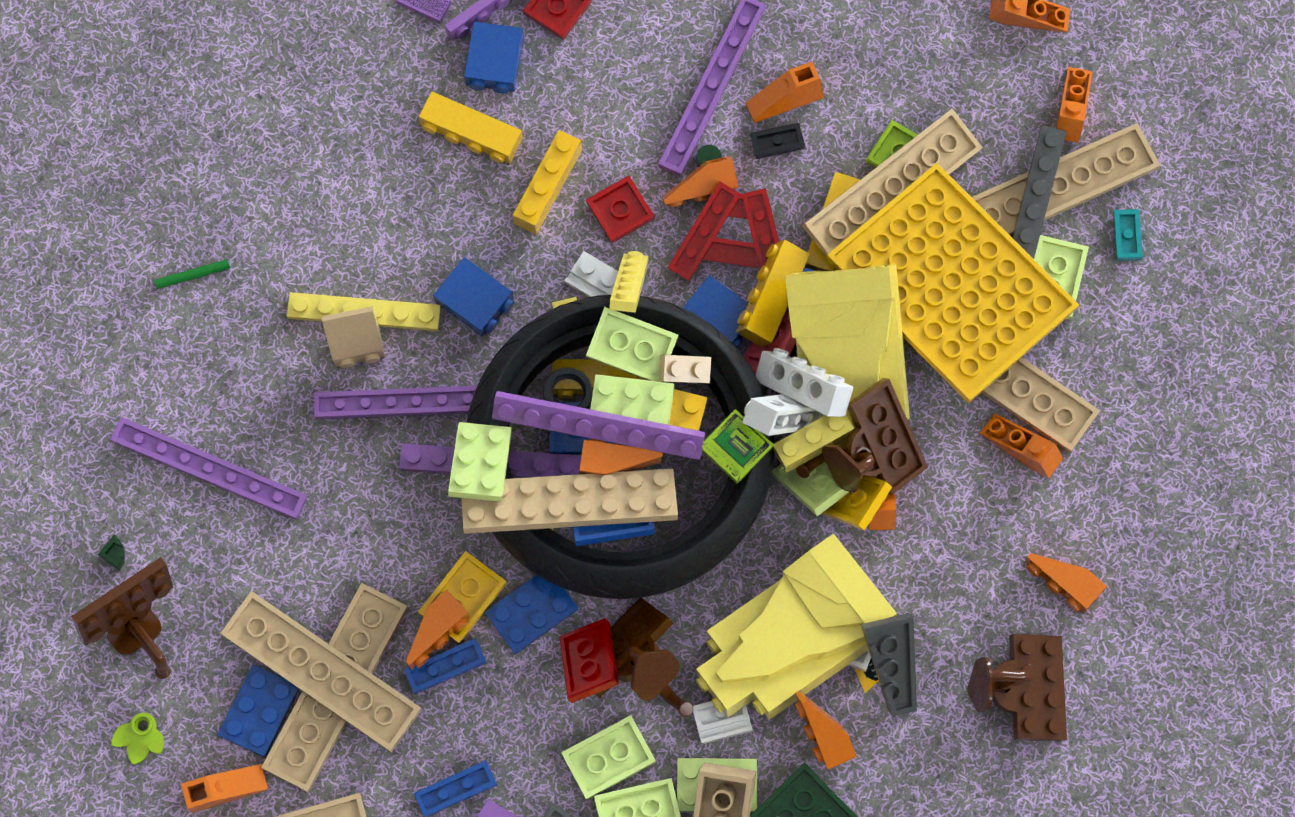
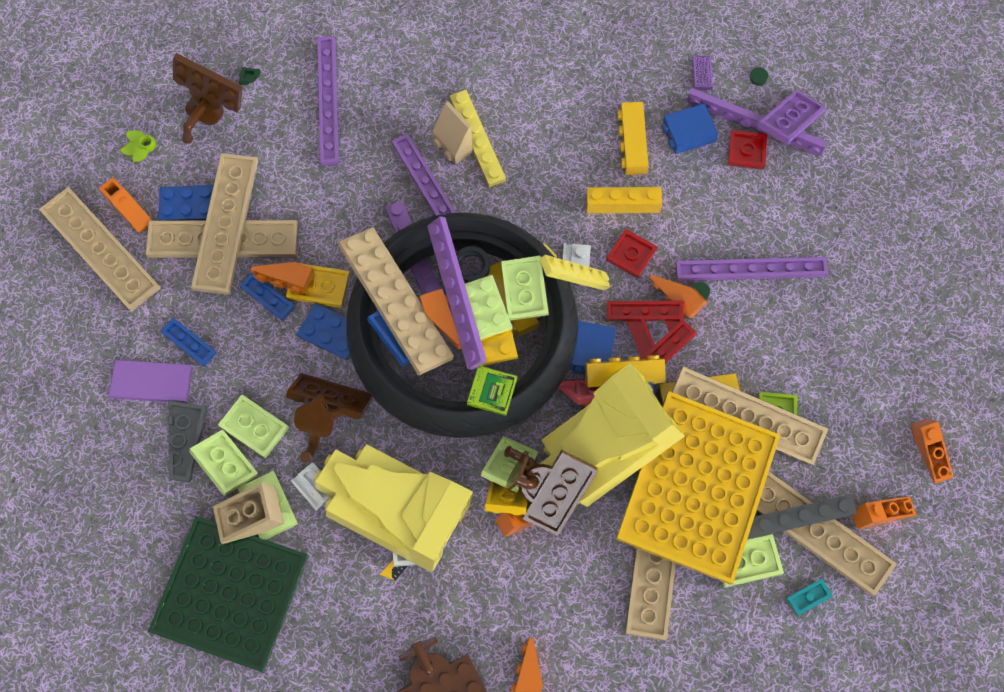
camera: 60 degrees right, 5 degrees down
(192, 274) = (448, 32): green bar -> none
(474, 297) = (521, 194): blue brick -> none
(480, 462) = (391, 231): yellowish green plate -> none
(588, 660) = (309, 379): red tile -> none
(684, 369) = (528, 330): plate -> none
(777, 140) = (737, 328): black plate -> none
(778, 414) = (534, 412): white brick -> none
(787, 92) = (775, 317): orange slope -> none
(804, 382) = (564, 416): white brick -> none
(810, 440) = (524, 439): light yellow brick -> none
(829, 736) = (334, 558): orange slope -> none
(893, 657) = (405, 575): dark grey wing -> none
(1023, 445) = (612, 597): orange slope -> none

